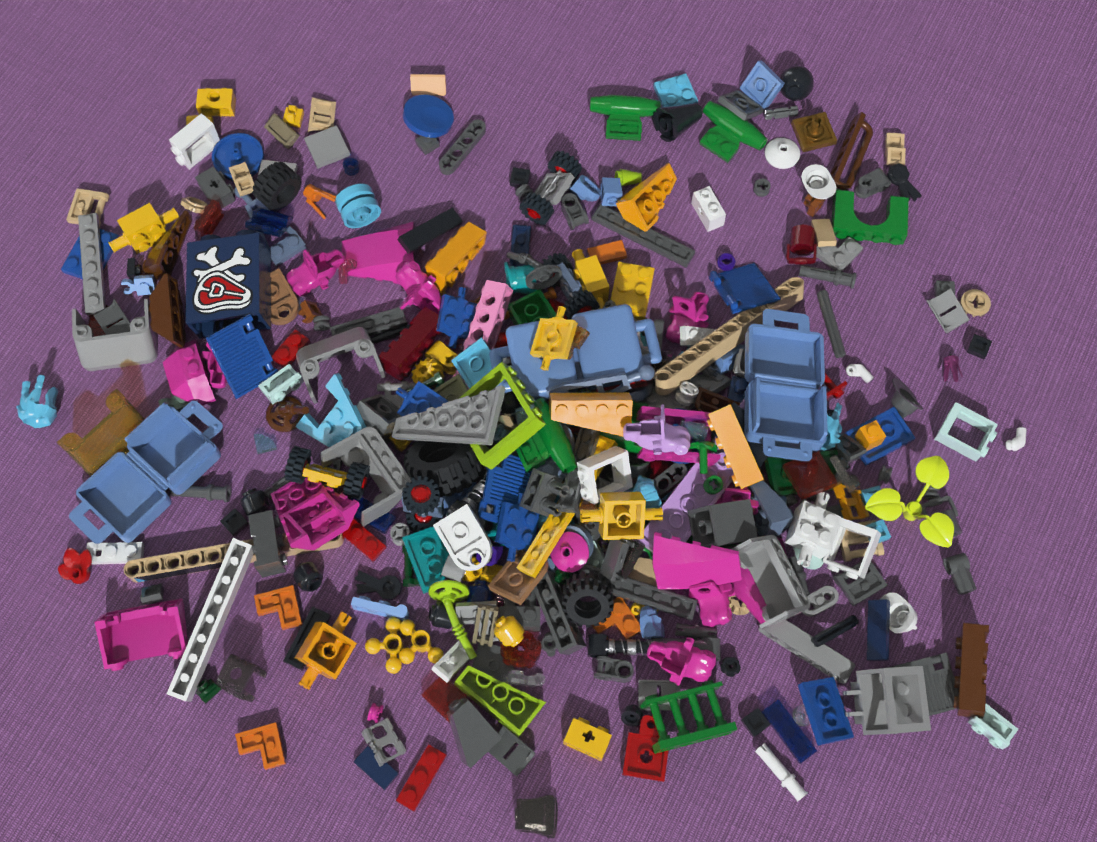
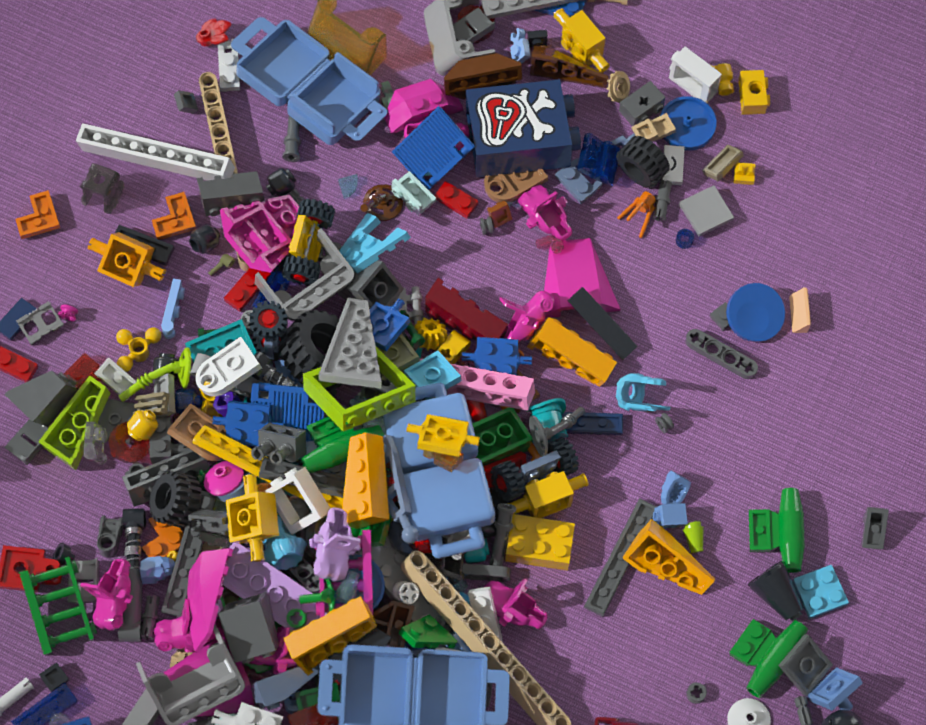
camera: 85 degrees right, 0 degrees up
(142, 633) = (147, 96): dark pink windscreen -> none
(207, 690) = (91, 158): dark green plate -> none
(209, 219) = (600, 102): clear red plate -> none
(234, 522) = (261, 165): black plate -> none
(315, 180) = (662, 200): none -> dark grey pin
(322, 107) = (759, 202): tan piece -> none
(332, 556) = (225, 260): none -> olive hand
(353, 339) = (460, 256): light grey windscreen -> none
(358, 206) = (626, 246): medium azure wheel -> none
(373, 645) = (134, 305): yellow piece -> none
(374, 323) = (485, 271): dark grey plate -> none
(387, 587) = (196, 315): black piece -> none
(388, 334) = (477, 291): black piece -> none
(503, 217) = (635, 400): none -> medium azure piece
(519, 177) = (684, 417): black plate -> none
(563, 172) = (668, 449): plate -> none
(574, 214) = (639, 479): dark grey piece -> none
(576, 740) = (37, 501): yellow brick -> none
(608, 252) = (594, 517): orange tile -> none
(625, 47) = (874, 527): none -> dark grey slope
(708, 208) = (658, 627): white brick -> none
(723, 378) = (427, 633): none -> green wing
(726, 257) = (591, 644): dark purple plate -> none
(735, 666) = (113, 647): black plate -> none
(745, 286) = (551, 666): blue window -> none

